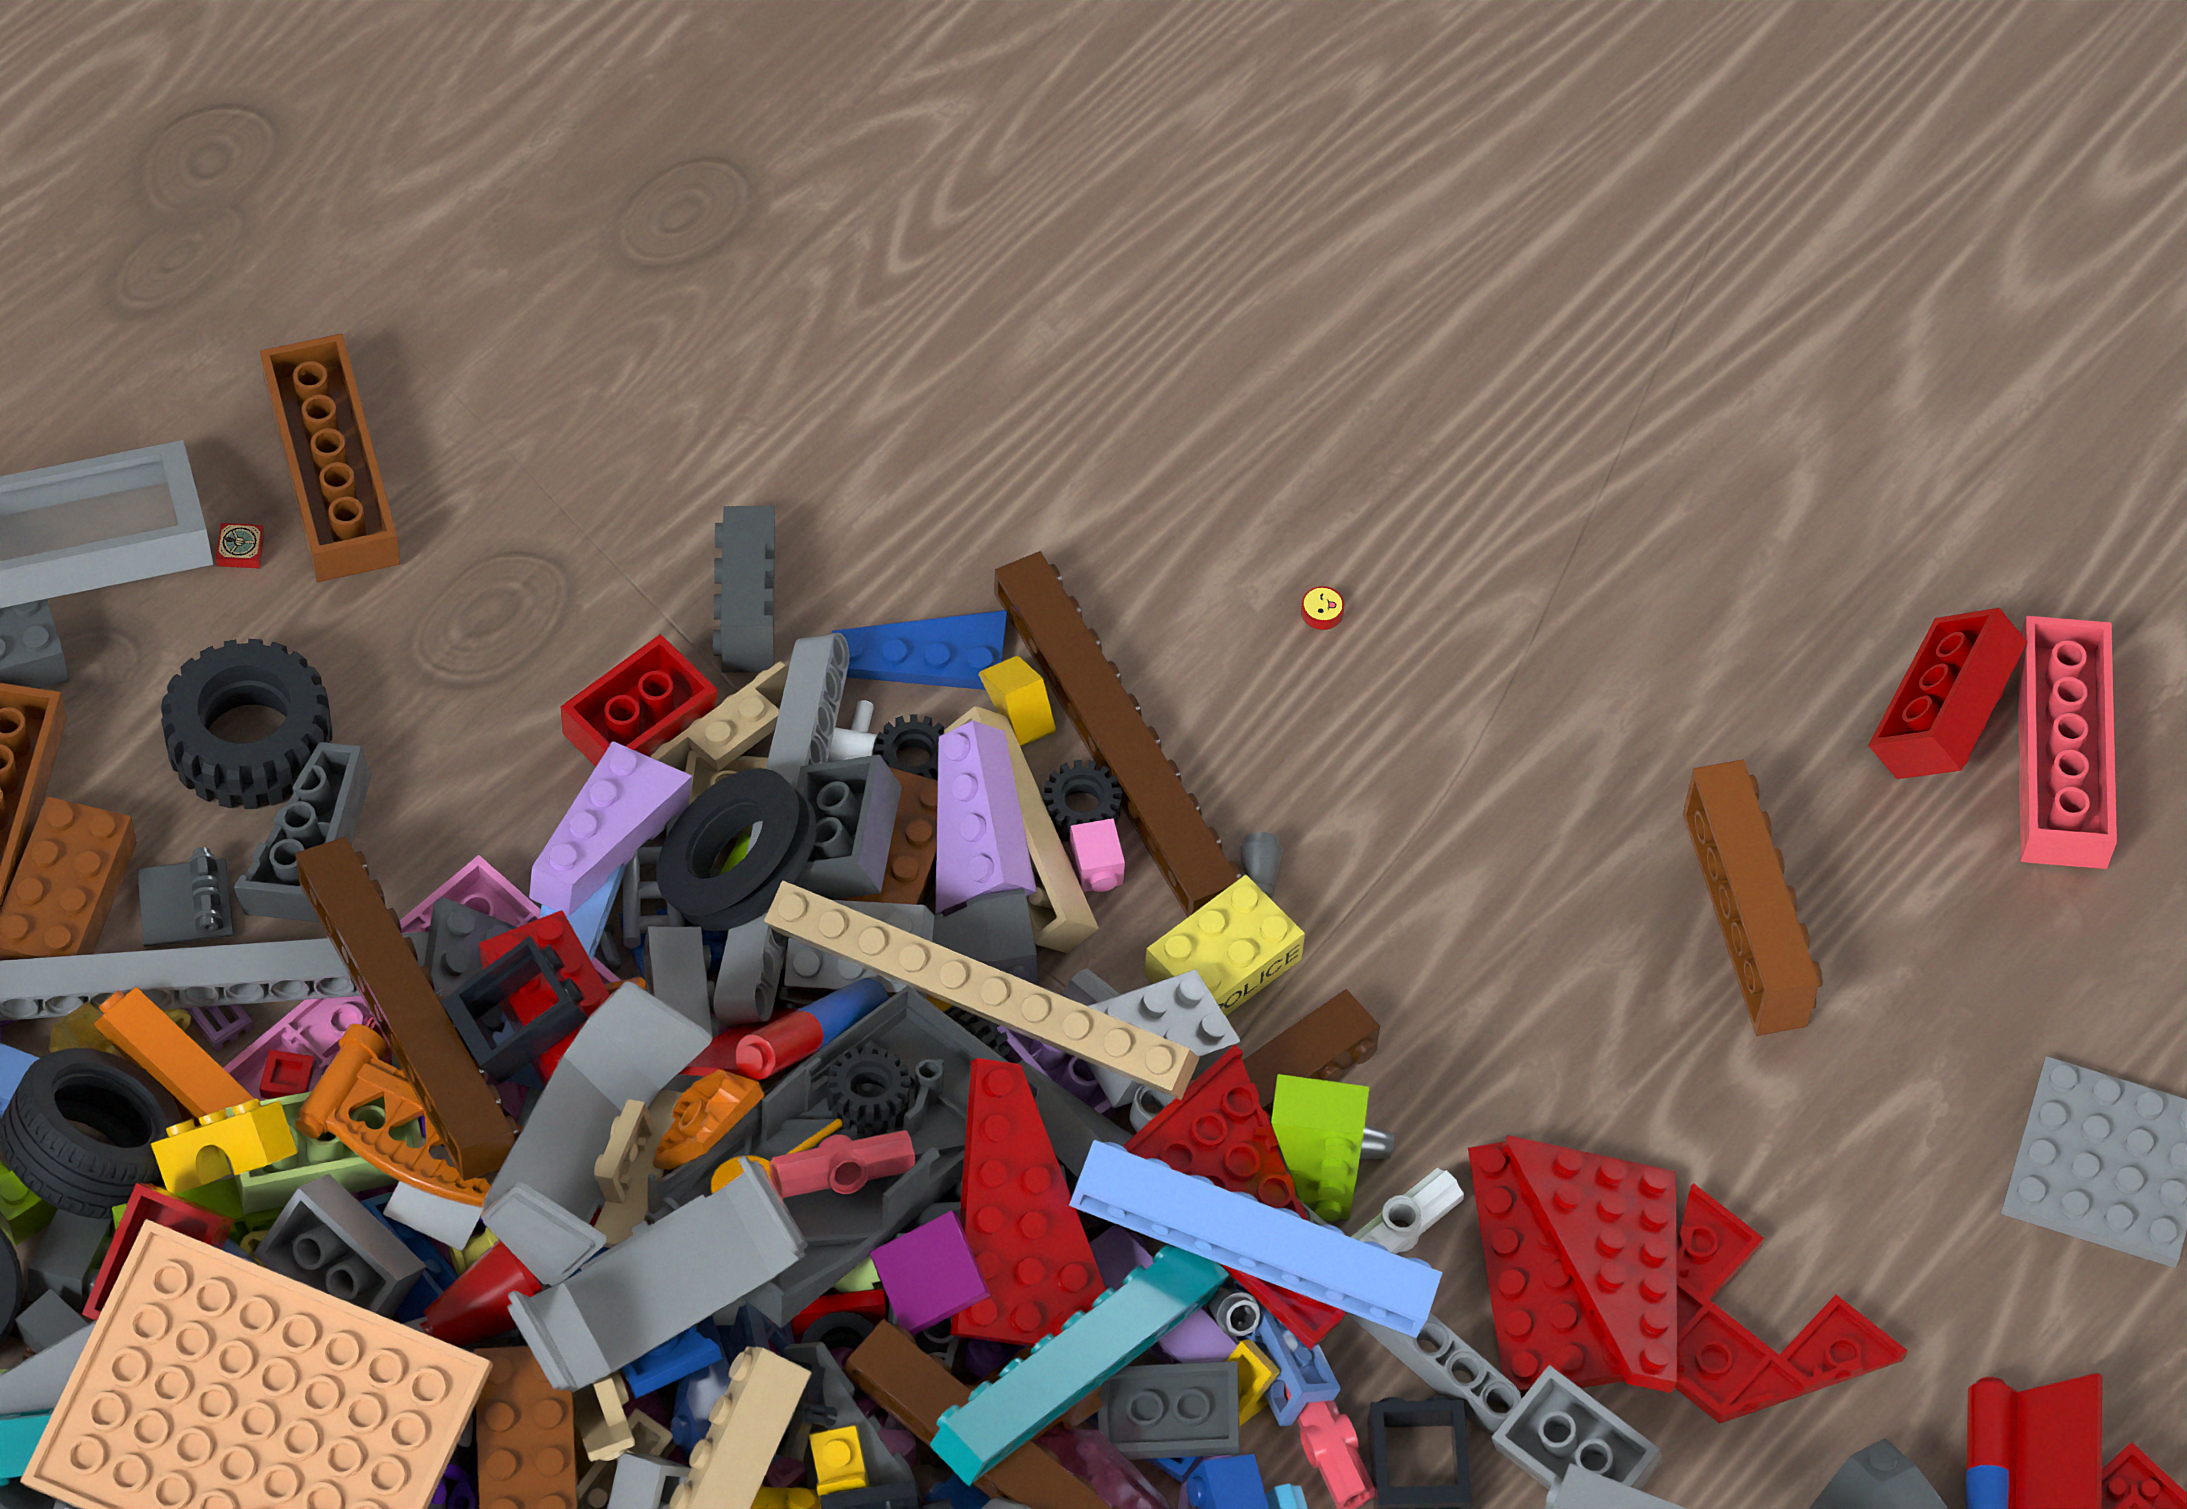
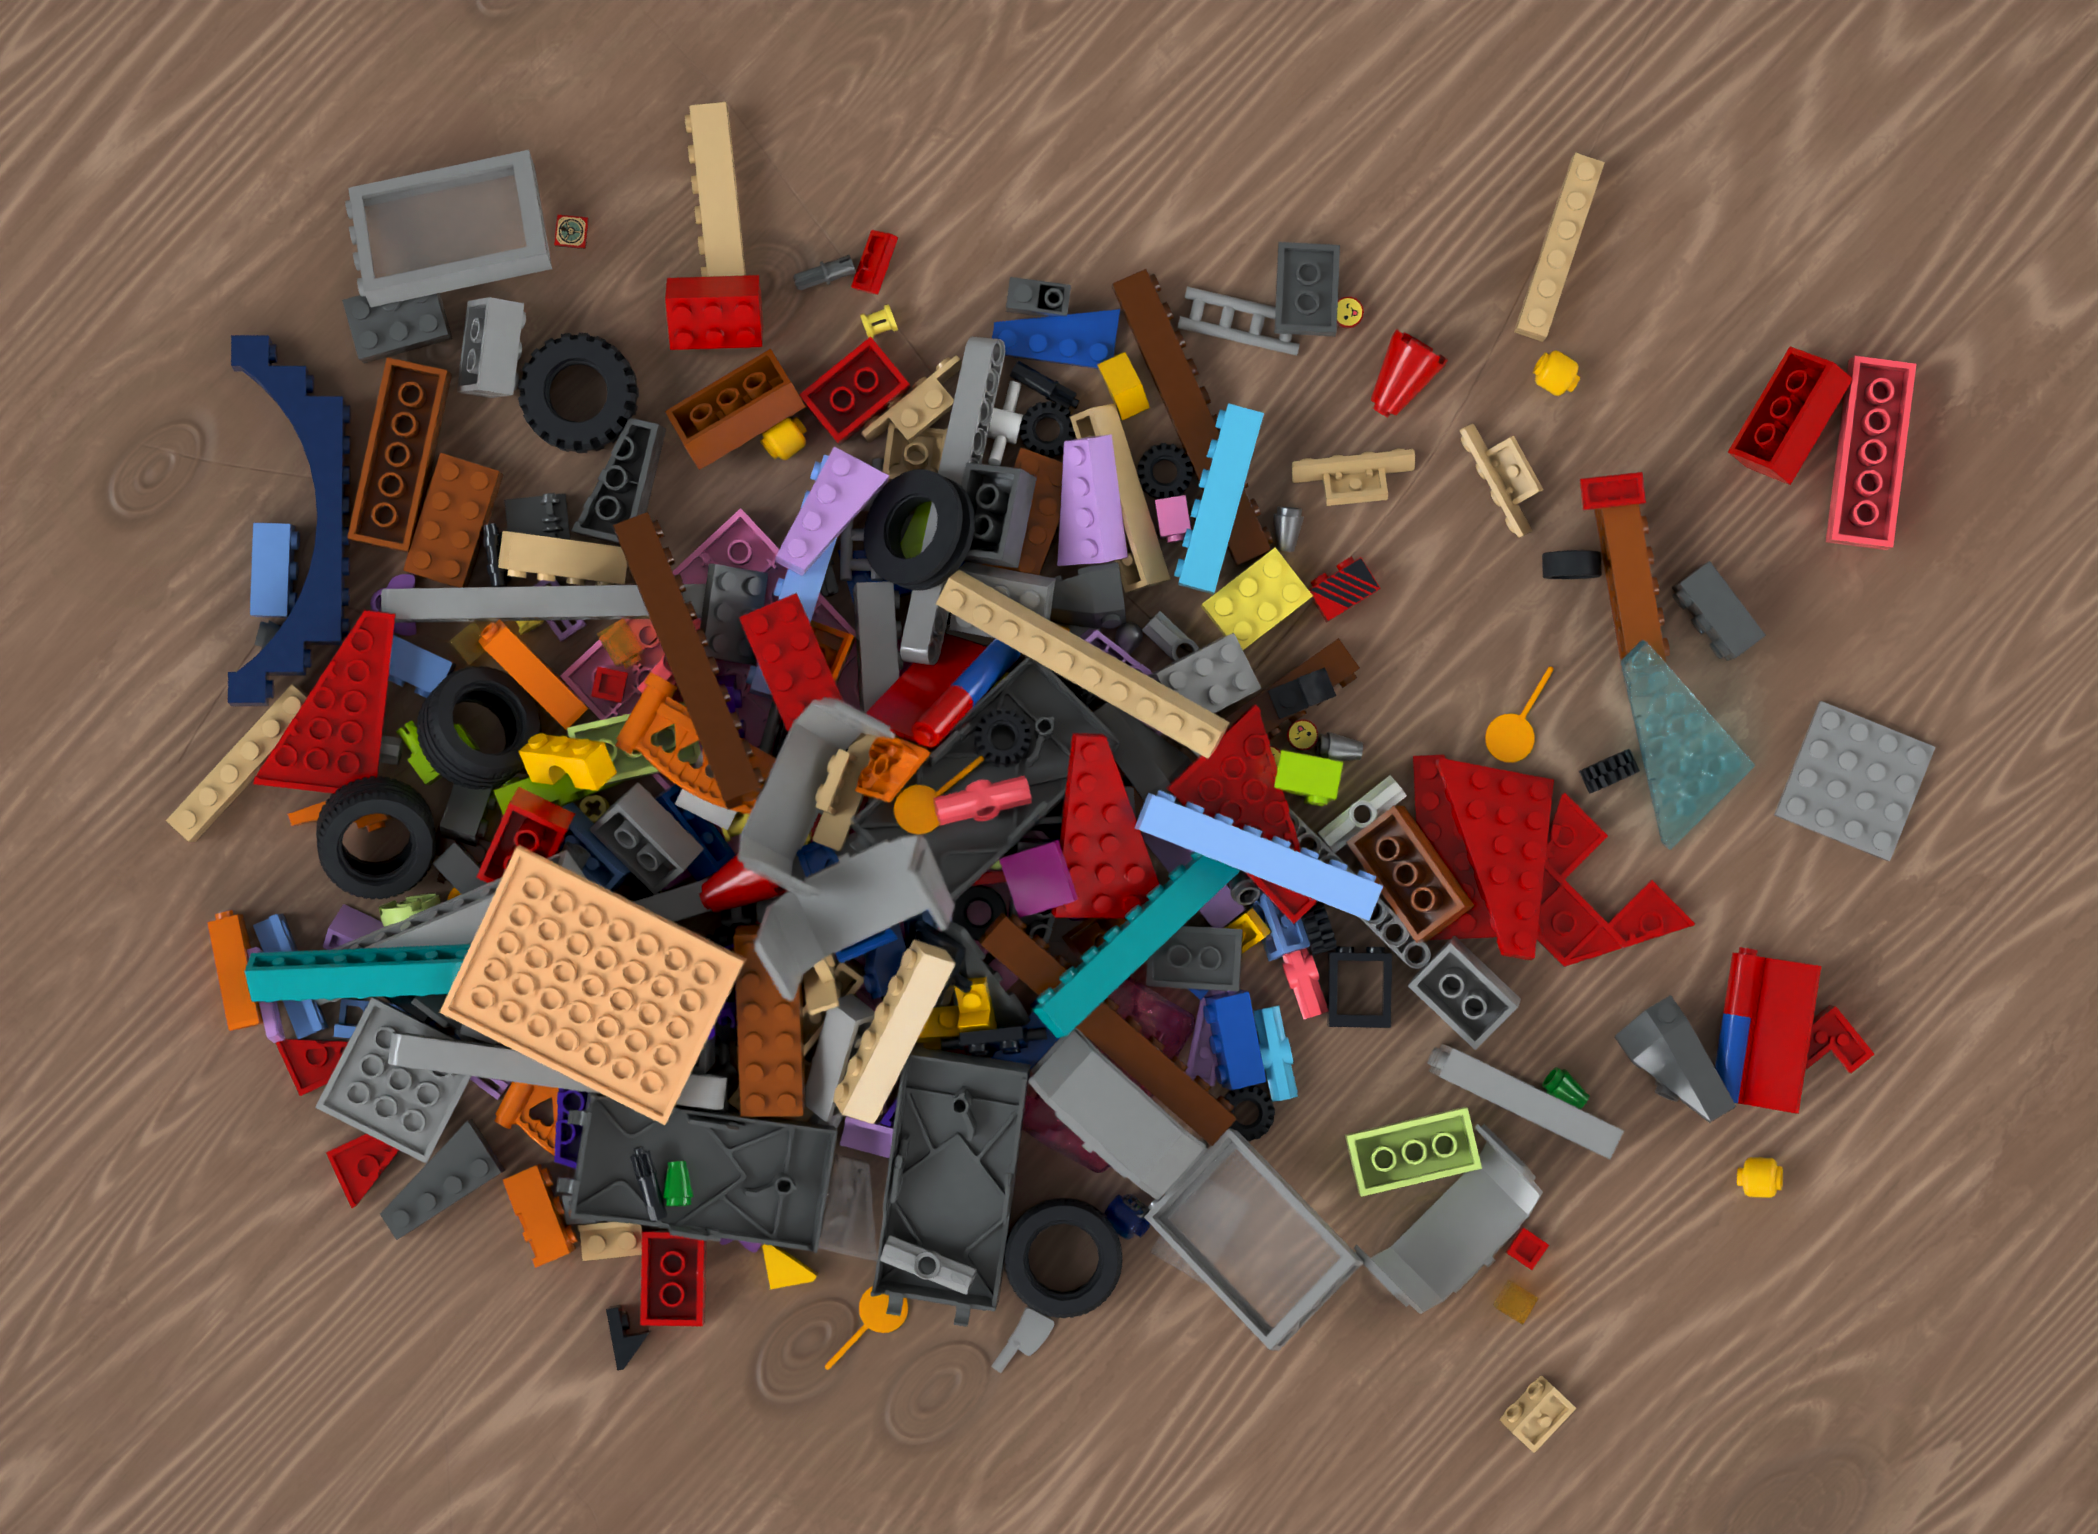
camera: 10 degrees right, 30 degrees up
(122, 914) = (492, 543): none -> black plate
(124, 668) = (491, 347): none -> light grey brick
(211, 912) = (563, 558): none -> tan brick
(304, 1019) = (621, 644): none -> clear yellow brick
(330, 458) = (634, 165): dark orange brick -> none
(440, 617) = (714, 312): none -> red brick
(445, 496) = (716, 189): none -> tan brick
(470, 732) = (735, 409): none -> dark orange brick
(496, 984) = (736, 696): black window -> none
(539, 773) = (784, 438): none -> yellow head
(594, 580) = (825, 273): none -> dark grey axle
(663, 564) = (874, 262): none -> red plate
(678, 631) = (886, 313): none -> light yellow bush
(746, 589) = (934, 285): dark grey wedge -> none
(889, 593) = (1037, 297): none -> dark grey slope
(902, 702) = (1044, 385): none -> black piece
(1162, 813) = (1220, 498): none -> medium azure brick
(1195, 639) = (1224, 328): none -> light grey bar
(1264, 575) = (1307, 289): none -> dark grey plate
(1304, 1053) = (1301, 693): none -> black slope
(1348, 794) = (1355, 476): none -> tan bracket
(1348, 936) = (1343, 589): none -> brick
(1352, 1367) = (1319, 929): none -> black tyre
(1410, 662) = (1404, 373): none -> red cone
(1485, 1286) = (1411, 873): none -> dark orange brick
(1566, 785) = (1506, 474): none -> tan bracket
(1603, 518) = (1559, 247): none -> tan brick
(1606, 1121) = (1511, 735): none -> light orange piece
(1618, 663) = (1556, 373): none -> yellow head
(1668, 887) = (1571, 564): none -> black tyre
(1715, 768) = (1612, 491): none -> red plate
(1755, 1147) = (1609, 771): none -> black tyre
(1860, 1112) = (1682, 747): none -> clear light blue wing
(1883, 937) = (1717, 612): none -> dark grey brick

